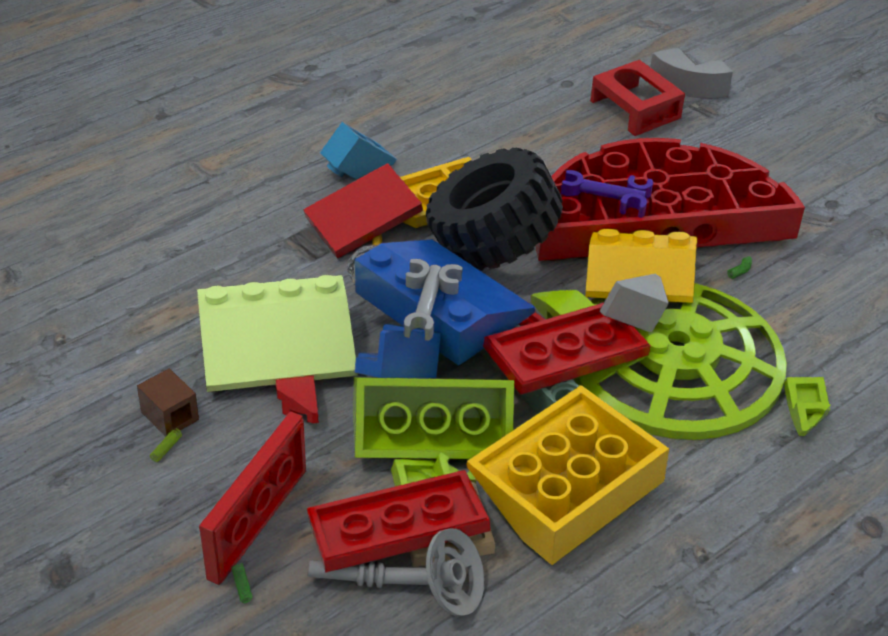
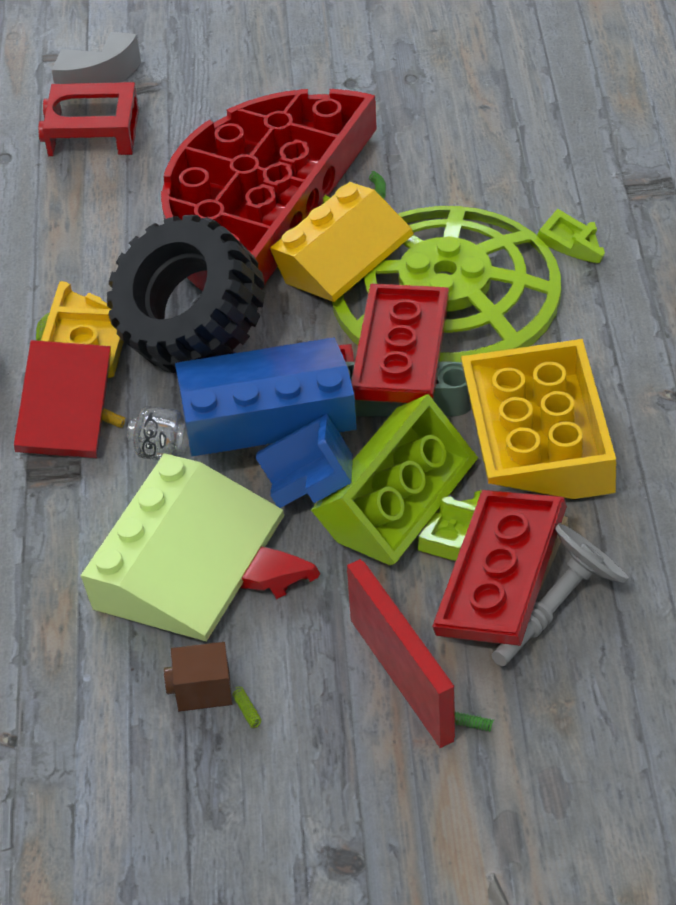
camera: 50 degrees left, 5 degrees up
(429, 279) = (288, 376): light grey bar -> none
(559, 302) = (329, 320): lime slope -> none
(631, 196) = (252, 192): dark purple bar -> none
(637, 301) = (402, 261): light grey slope -> none

